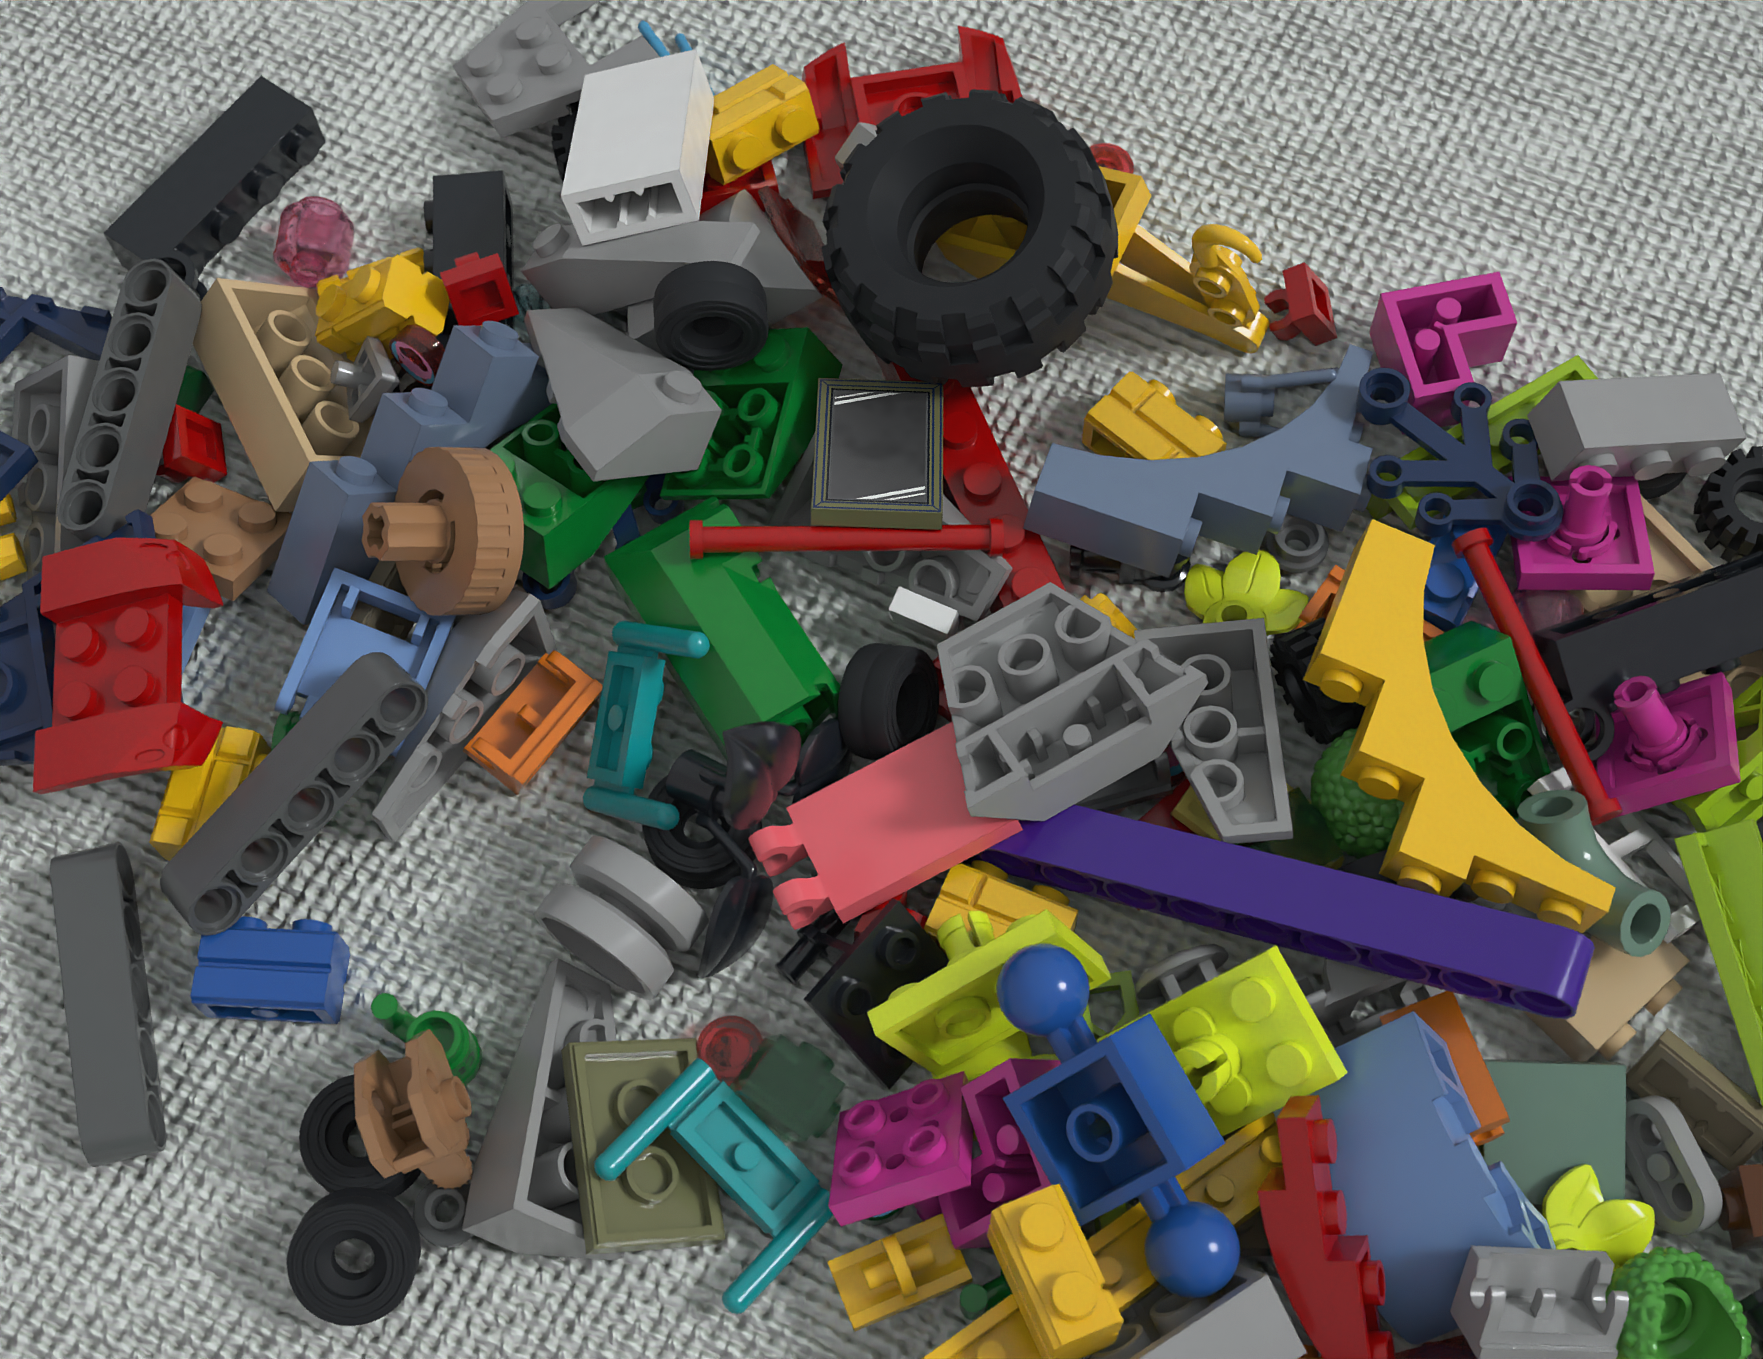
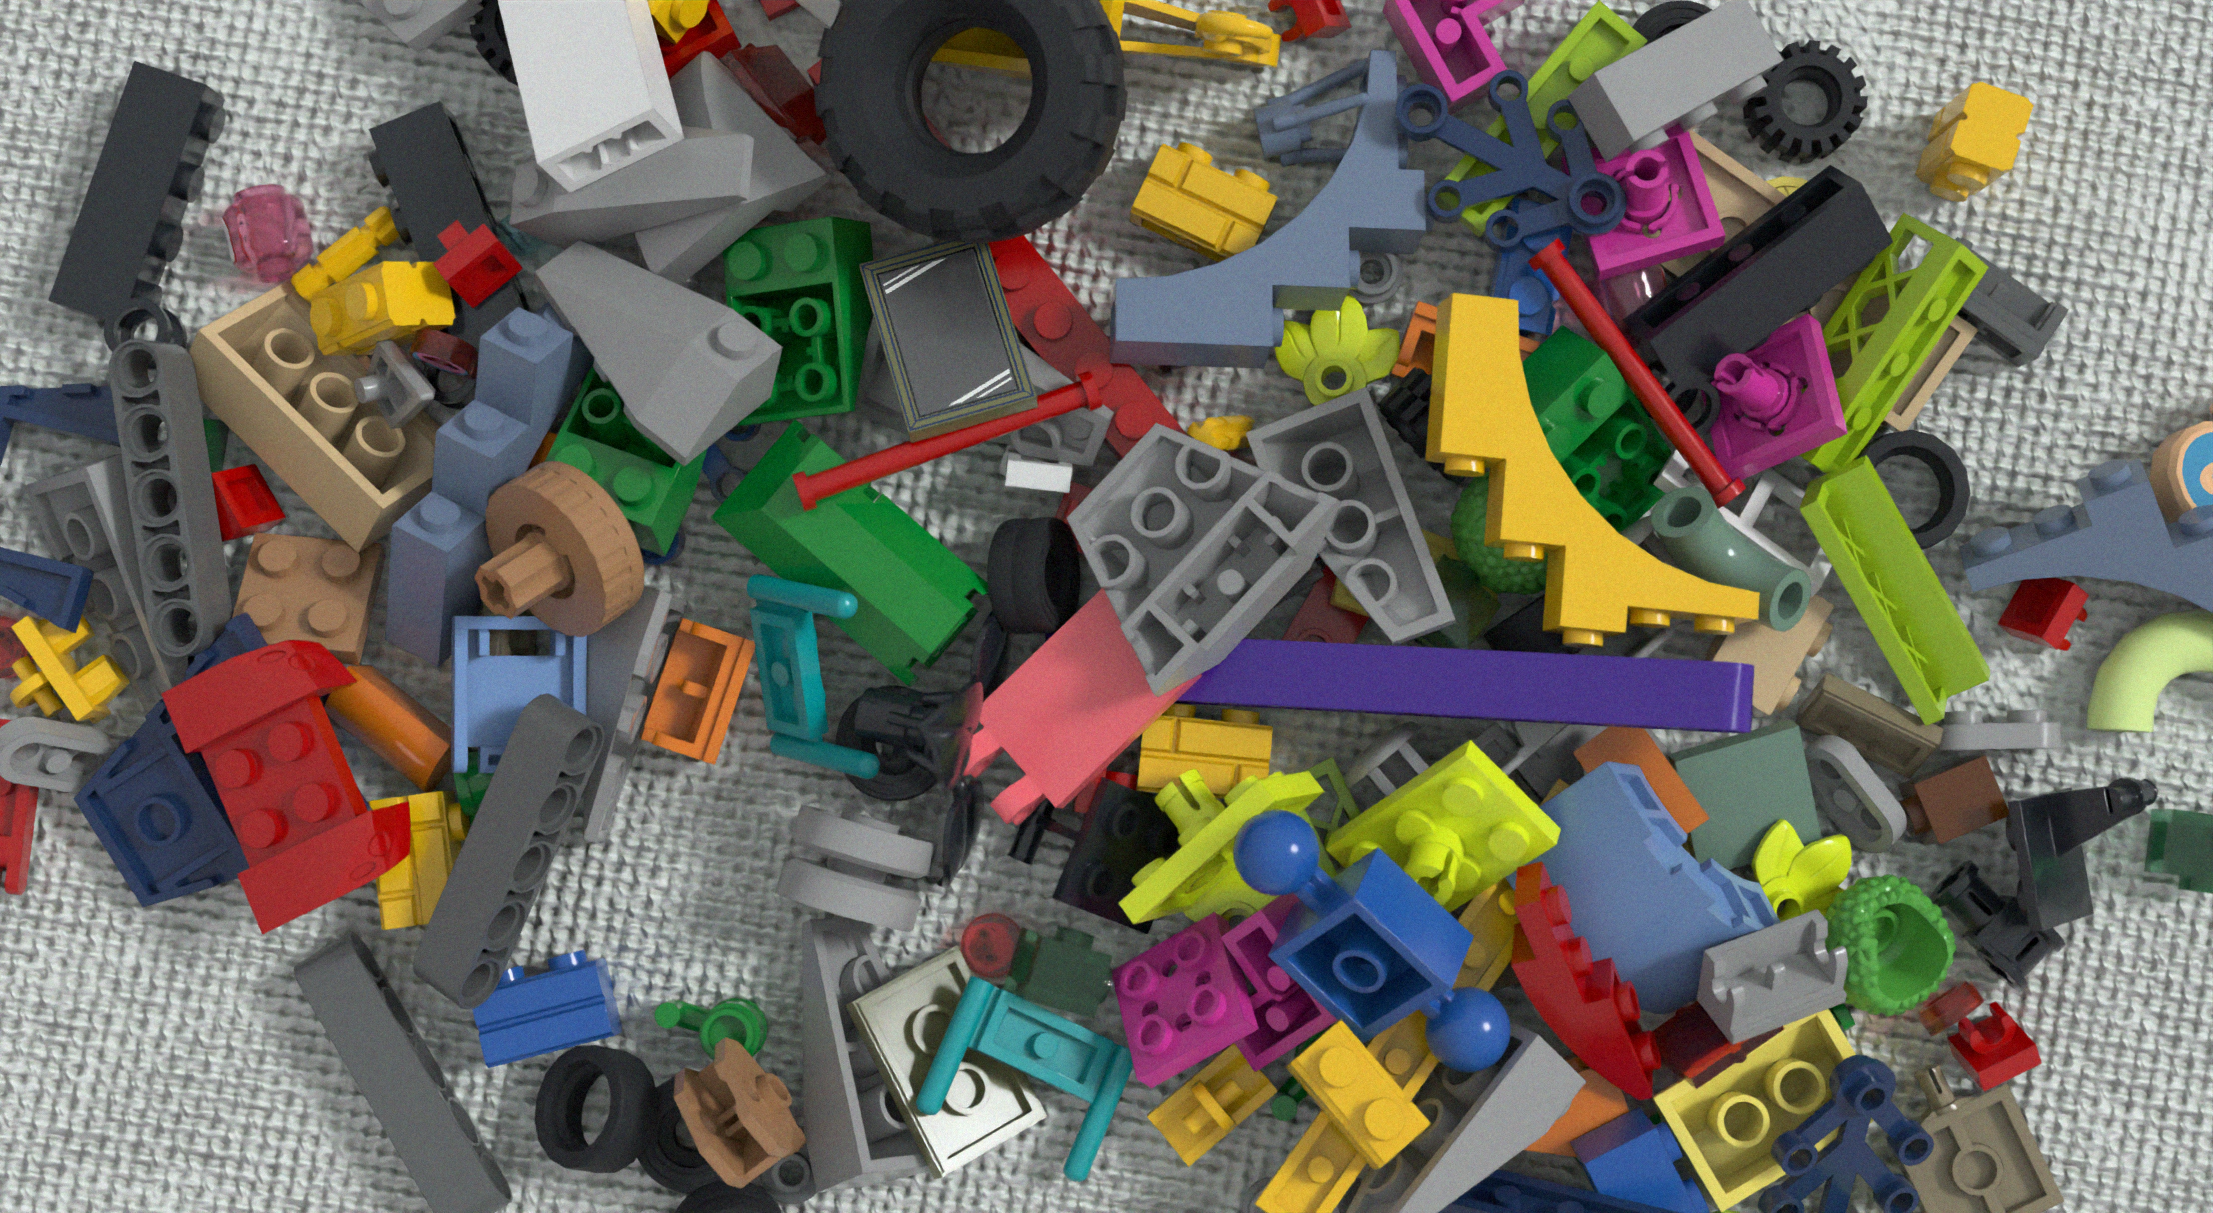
camera: 20 degrees left, 20 degrees up
(237, 667) = (393, 726): none -> orange brick
(297, 1096) = (561, 1108): none -> black tyre
(704, 290) = (734, 245): black tyre -> none

